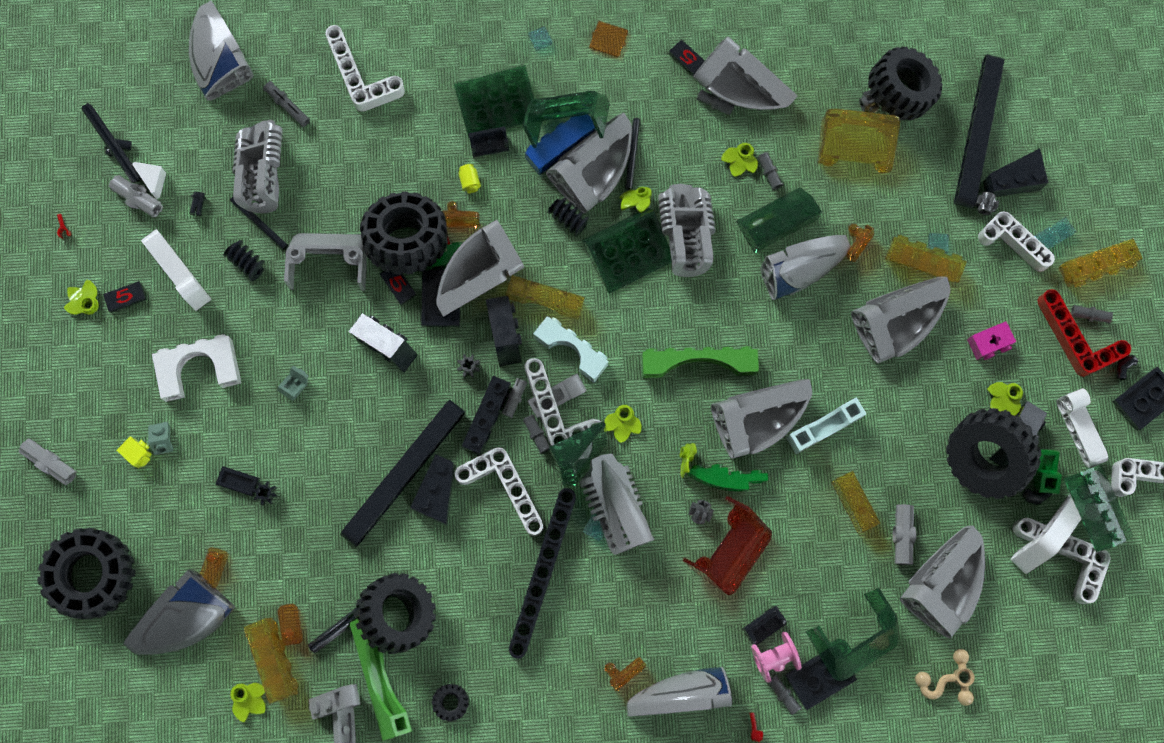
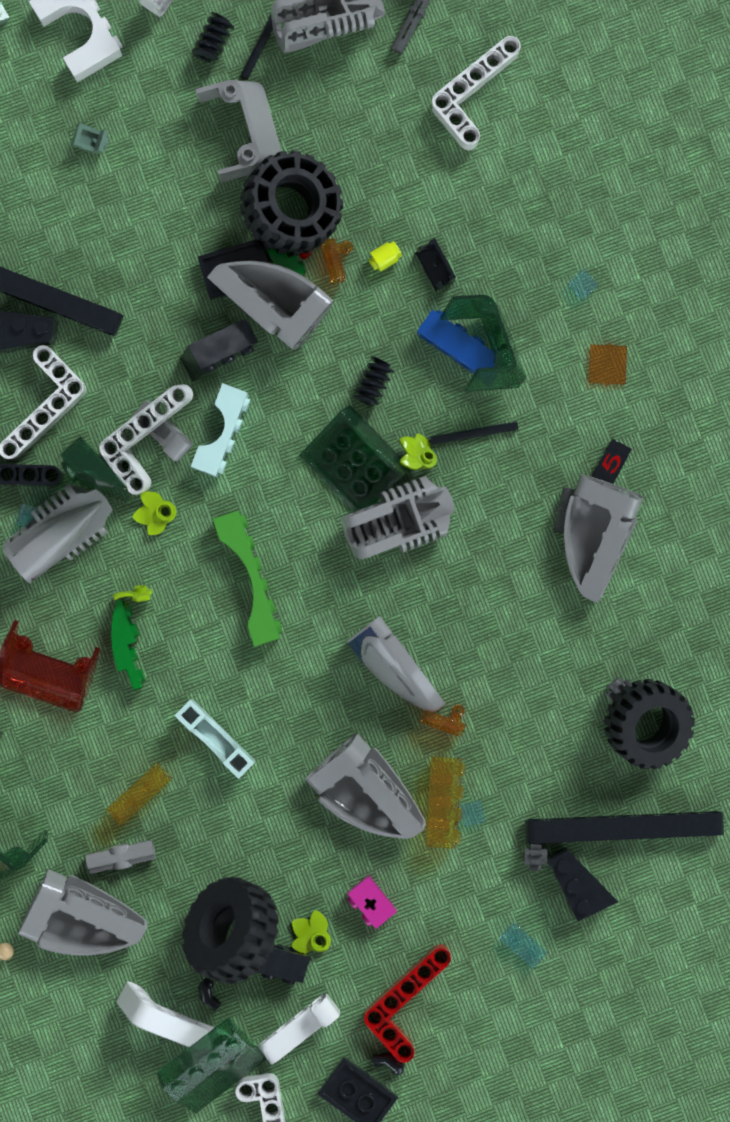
camera: 75 degrees right, 10 degrees up
(383, 341) = (164, 221): wedge -> none
(398, 286) = (232, 221): black tile -> none
(470, 360) = (169, 317): dark grey gear -> none
(486, 416) = (116, 361): black brick -> none
(494, 99) = (489, 254): clear green slope -> none
(514, 397) = (146, 384): light grey pin -> none
(537, 434) = (113, 422): dark grey pin -> none
(556, 299) = (270, 384): clear yellow arch -> none
(593, 165) = (434, 392): light grey panel -> none
(701, 512) = (79, 626): dark grey gear -> none
(738, 161) = (501, 559): lime plate -> none
(760, 417) = (204, 662): light grey panel -> none
(770, 171) = (499, 596): dark grey pin -> none
(779, 219) = (445, 621): clear green slope -> none
(858, 138) = (565, 689): clear yellow windscreen -> none
(1017, 244) = (497, 906): white beam -> none
(1047, 477) = (235, 998): green brick -> none
(1070, 551) = (156, 1044): white beam -> none
(1091, 314) = (439, 1009): dark grey pin -> none
(1101, 262) = (503, 1006): clear yellow brick -> none

